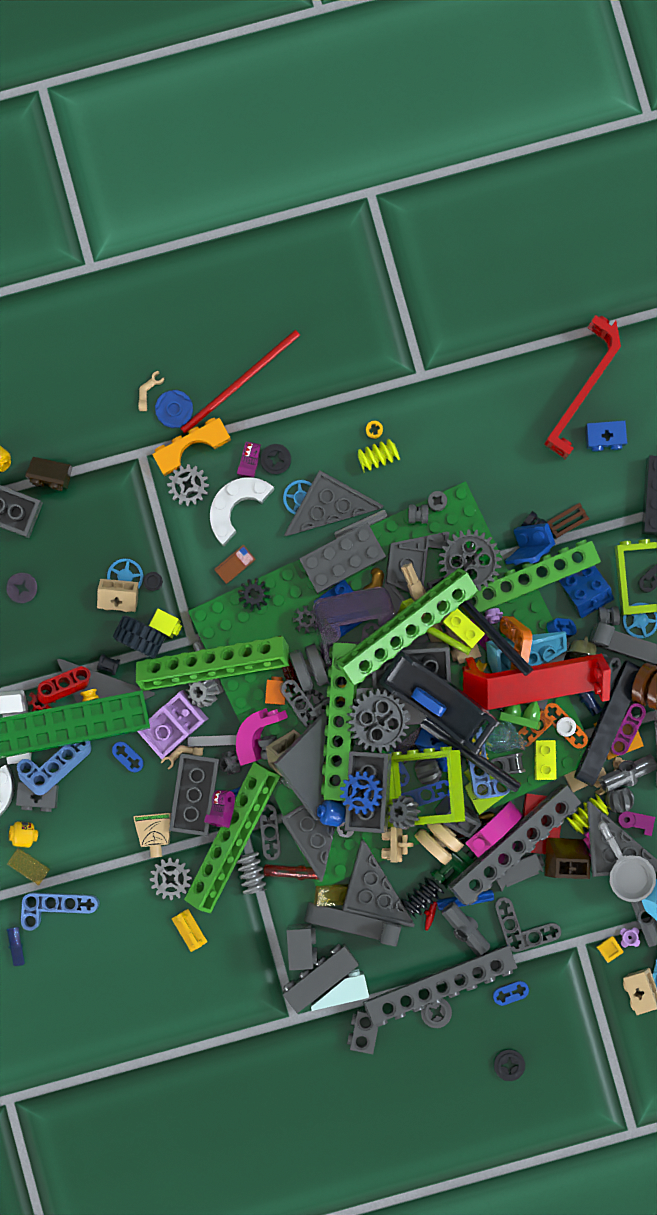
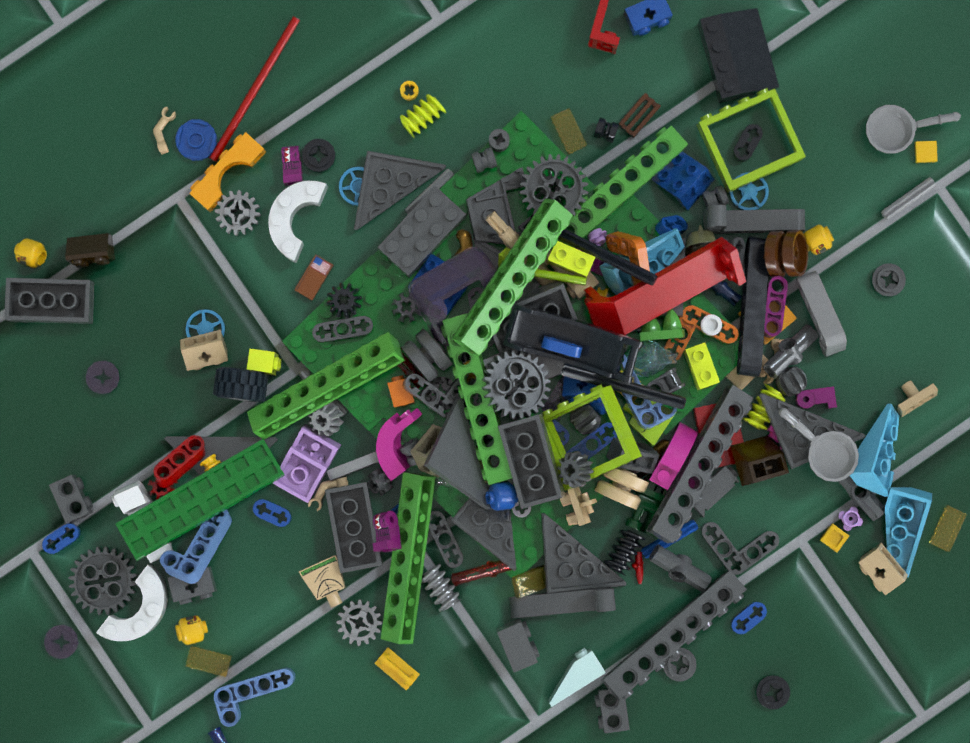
camera: 20 degrees left, 0 degrees up
(108, 664) = (219, 424): black bush -> none
(153, 581) = (235, 324): black plate -> none
(231, 612) = (328, 337): none -> dark grey beam
(320, 978) = (548, 671): dark grey brick -> none
(356, 784) = (517, 457): blue gear -> none
(501, 513) = (568, 131): none -> clear yellow tile
(533, 543) = (611, 149): blue bracket -> none

